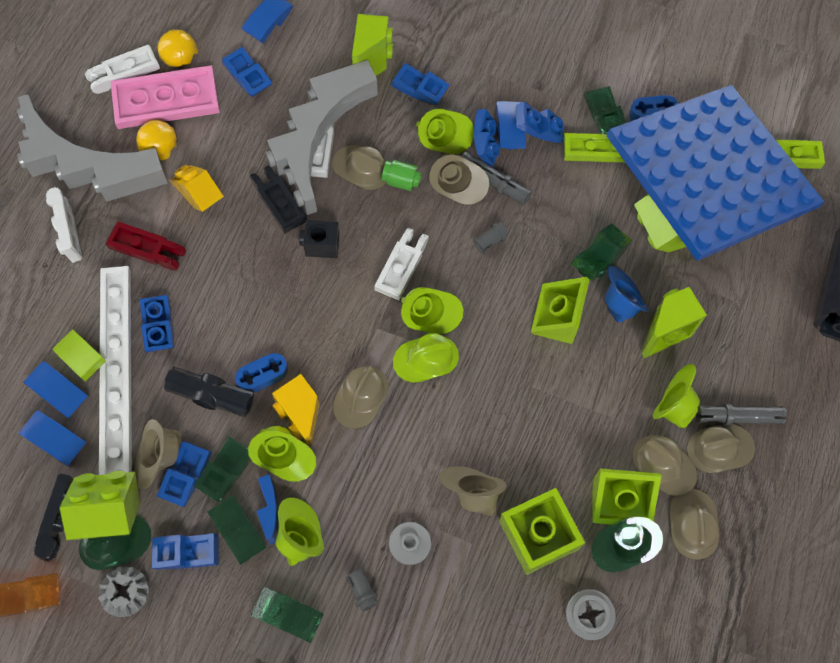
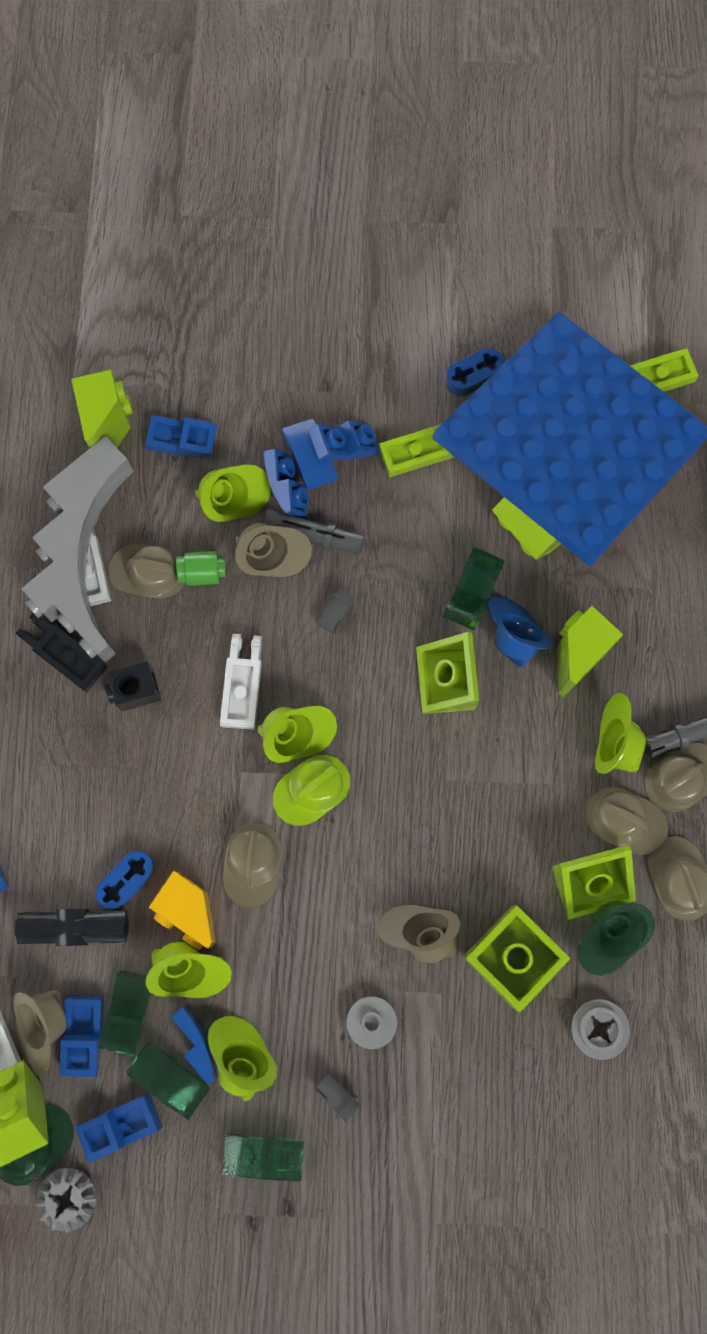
camera: 15 degrees left, 10 degrees up
(604, 109) = (417, 395): clear green slope -> none

